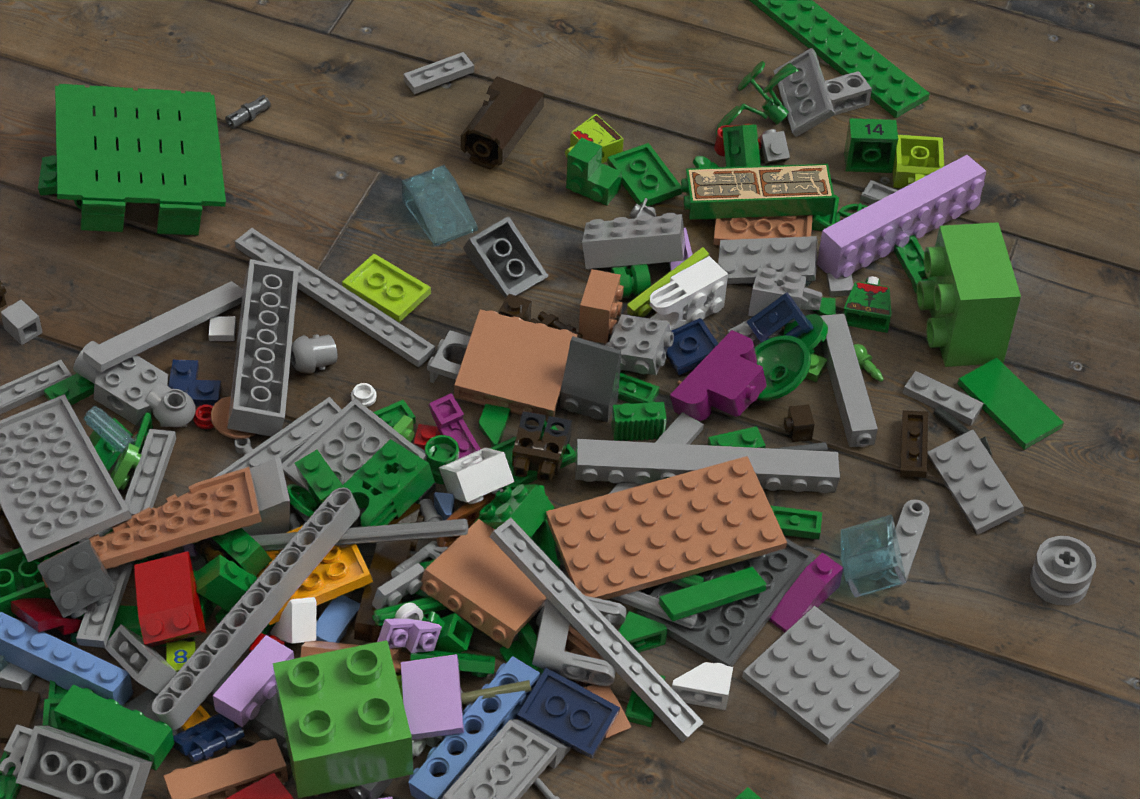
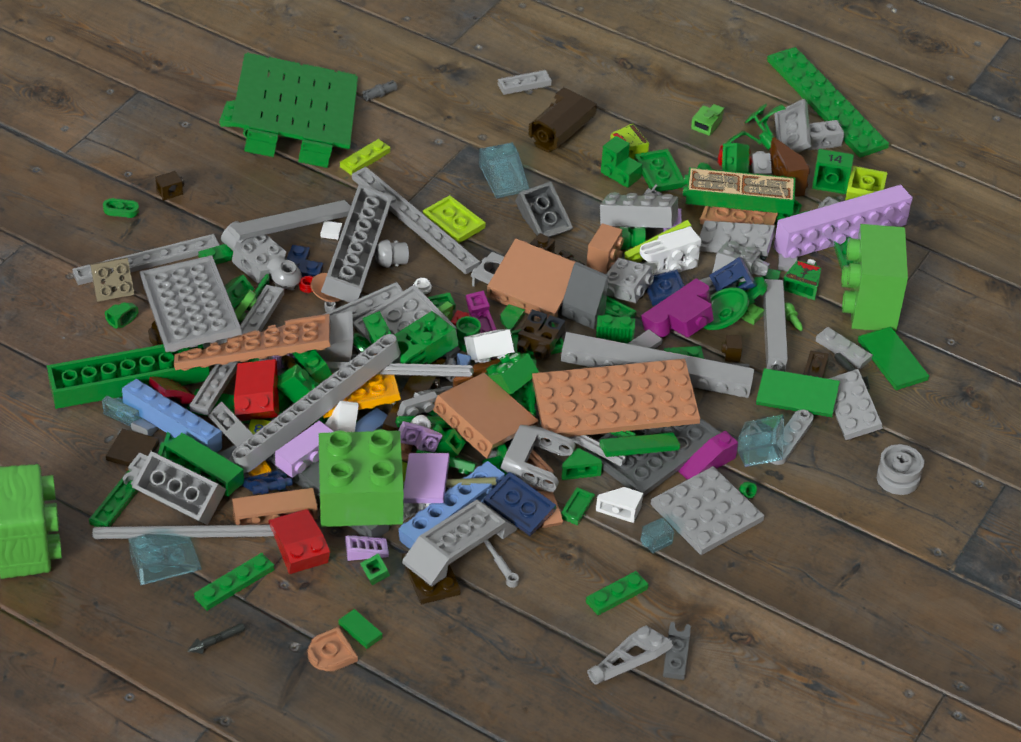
camera: 10 degrees right, 5 degrees down
(21, 322) = (191, 206): light grey brick -> none
(77, 579) = (197, 366): dark grey plate -> none
(108, 429) = (237, 279): clear light blue piece -> none
(247, 212) = (365, 156): none -> lime plate
(596, 629) = (550, 452): light grey plate -> none
(690, 92) = (707, 119): none -> bright green piece
(764, 727) = (657, 535): none -> clear light blue brick
(798, 522) = (714, 411): green plate -> none
(812, 144) = (788, 163): none -> reddish brown slope
(869, 633) = (750, 487): none -> green hinge
(902, 476) = (798, 392): none -> green tile

